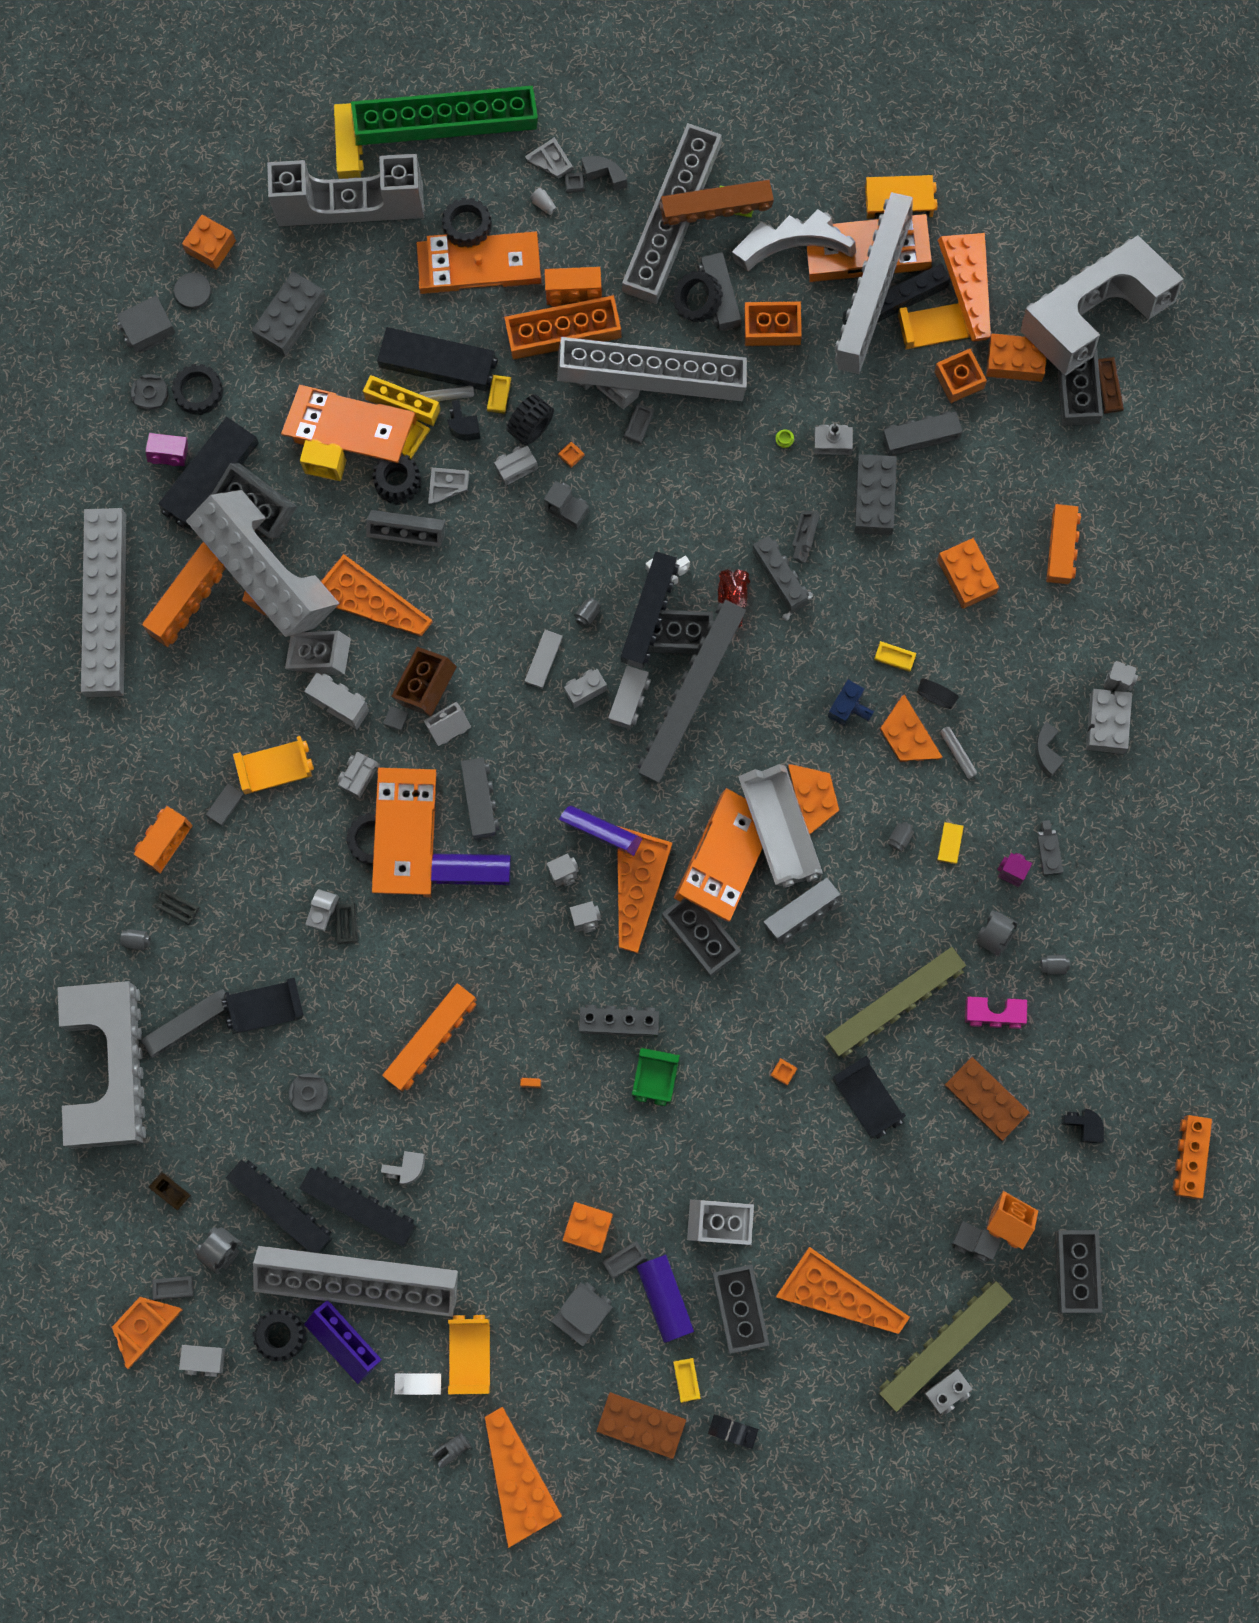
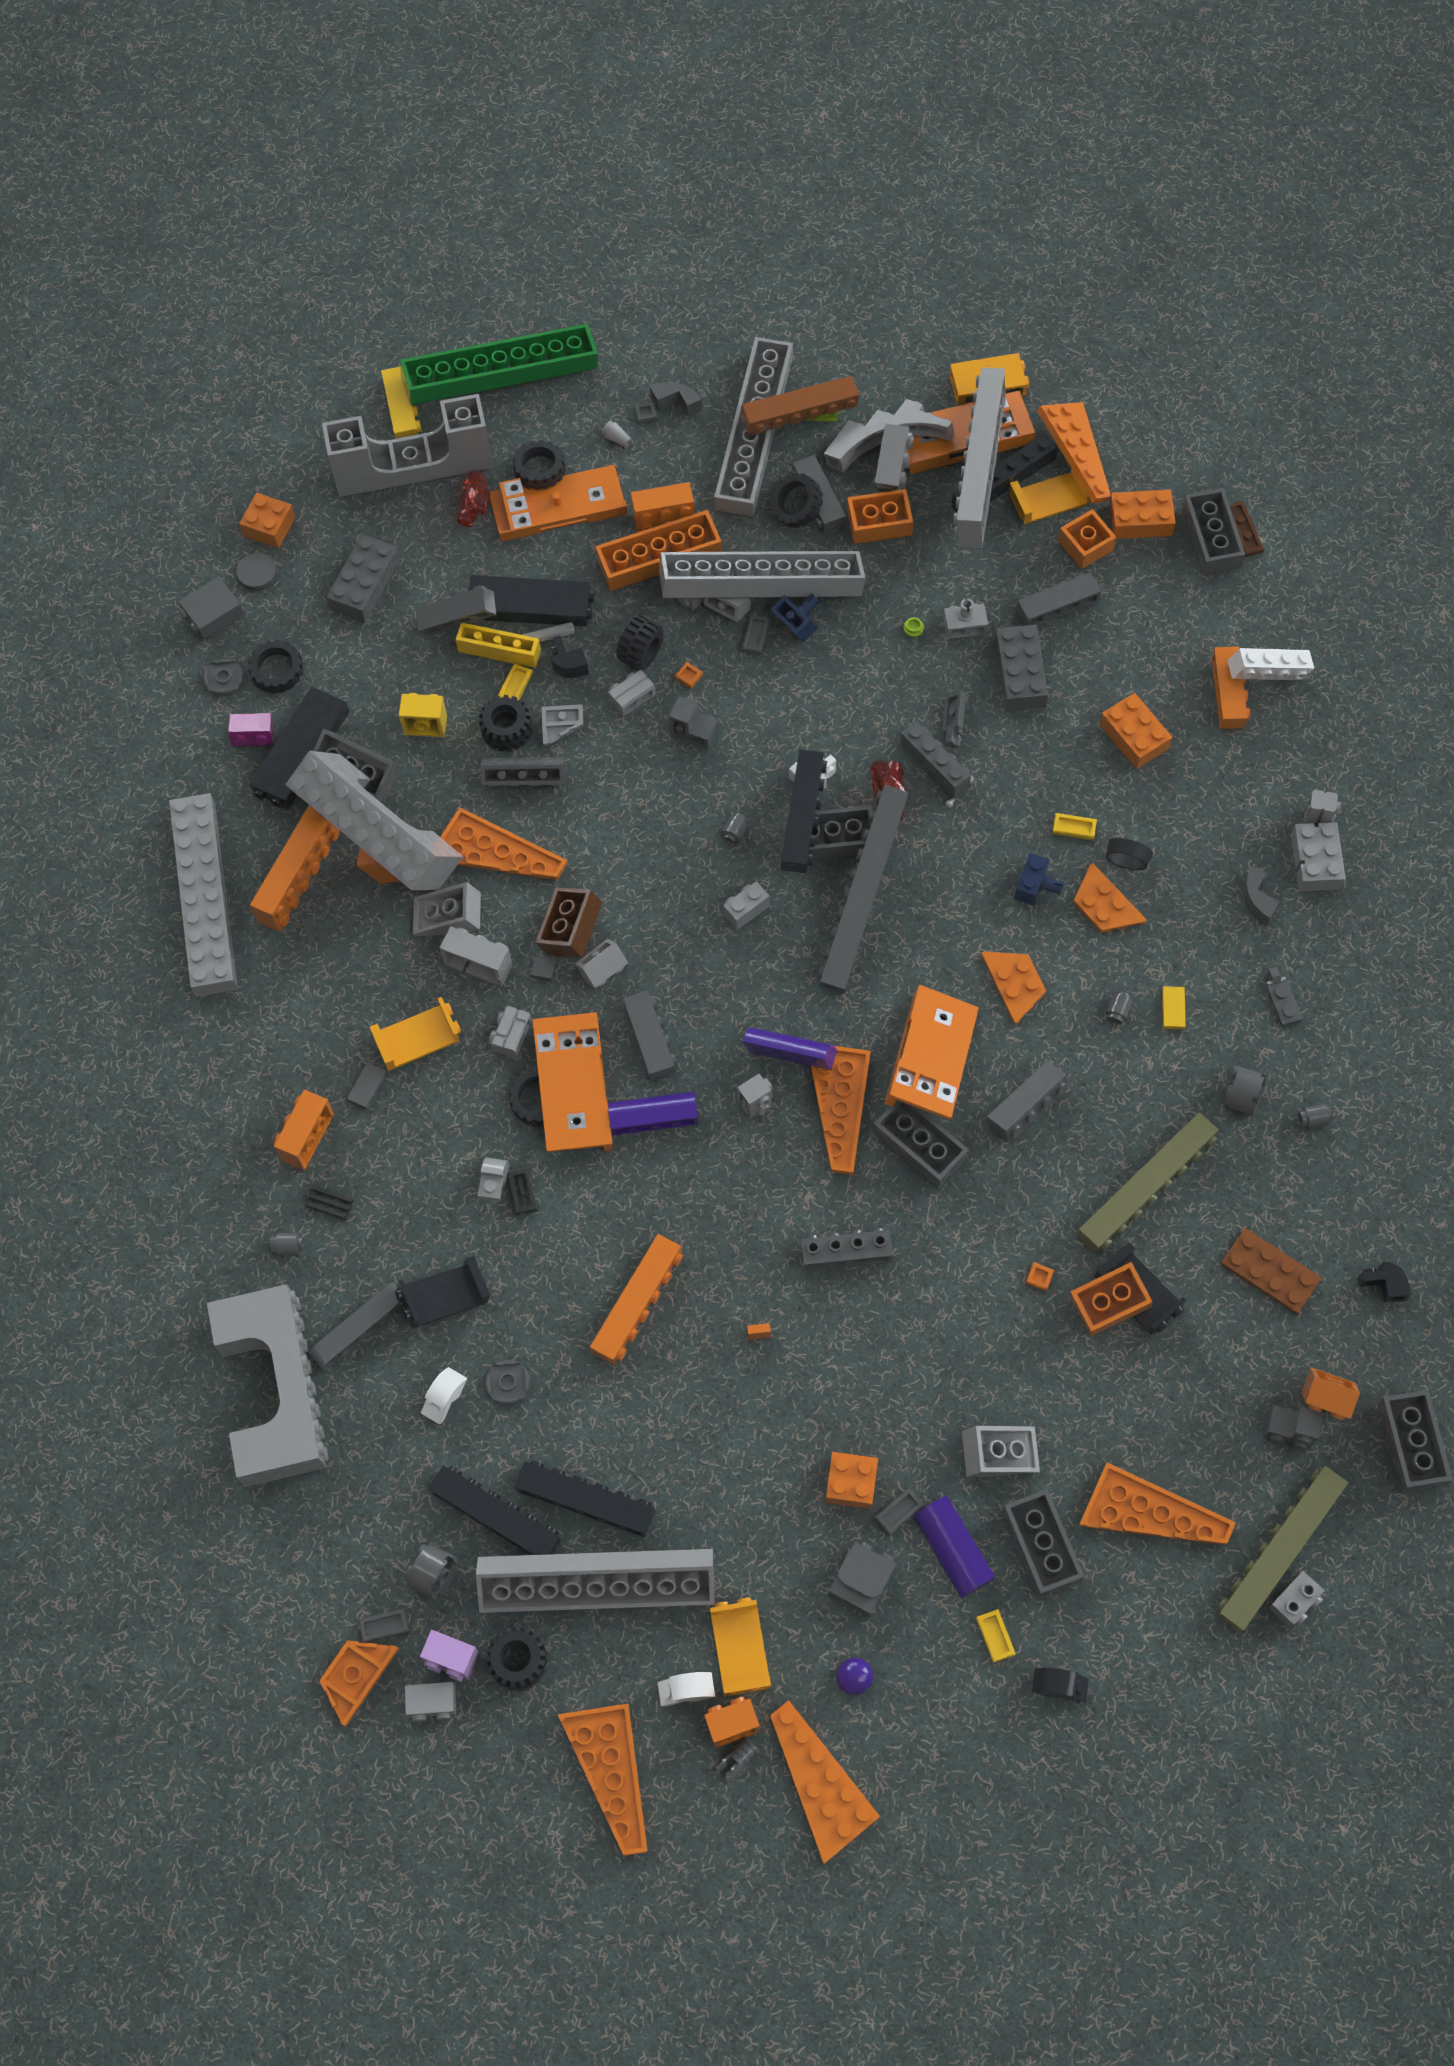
camera: 10 degrees left, 10 degrees down
(169, 1190) = (365, 1514): dark brown slope -> none
(223, 1325) = (449, 1655): none -> lavender brick
(250, 1095) = (442, 1393): none -> white brick
(342, 1341) = (591, 1654): dark purple brick -> none
(343, 1431) = (607, 1755): none -> orange wing
(348, 423) = (446, 674): orange piece -> none
(367, 362) = (454, 610): none -> dark grey brick
(401, 248) = (473, 498): none -> clear red animal
(411, 1168) = (638, 1449): light grey brick -> none
(450, 1420) = (732, 1722): none -> orange brick
(499, 394) = (601, 626): yellow tile -> none
(543, 659) = (695, 884): light grey tile -> none
(551, 159) = (617, 393): light grey wing -> none
(561, 1395) = (854, 1676): none -> dark purple hair
(585, 917) = (788, 1141): light grey brick -> none
(629, 697) = (796, 908): light grey brick -> none
(641, 1425) = (953, 1696): dark orange plate -> none
(655, 1076) = (897, 1302): green panel -> none
(678, 414) = (797, 616): none -> dark blue brick
(780, 826) = (986, 1014): light grey panel -> none
(794, 269) = (894, 458): none -> light grey piece
(840, 1104) = (1111, 1299): none -> orange brick
(958, 752) = (1163, 913): light grey axle -> none
(978, 1013) = (1243, 1179): dark pink arch -> none
(1014, 869) = (1249, 1021): magenta brick -> none
(1103, 529) = (1270, 664): none -> white brick
(1126, 272) = (1244, 414): light grey arch -> none

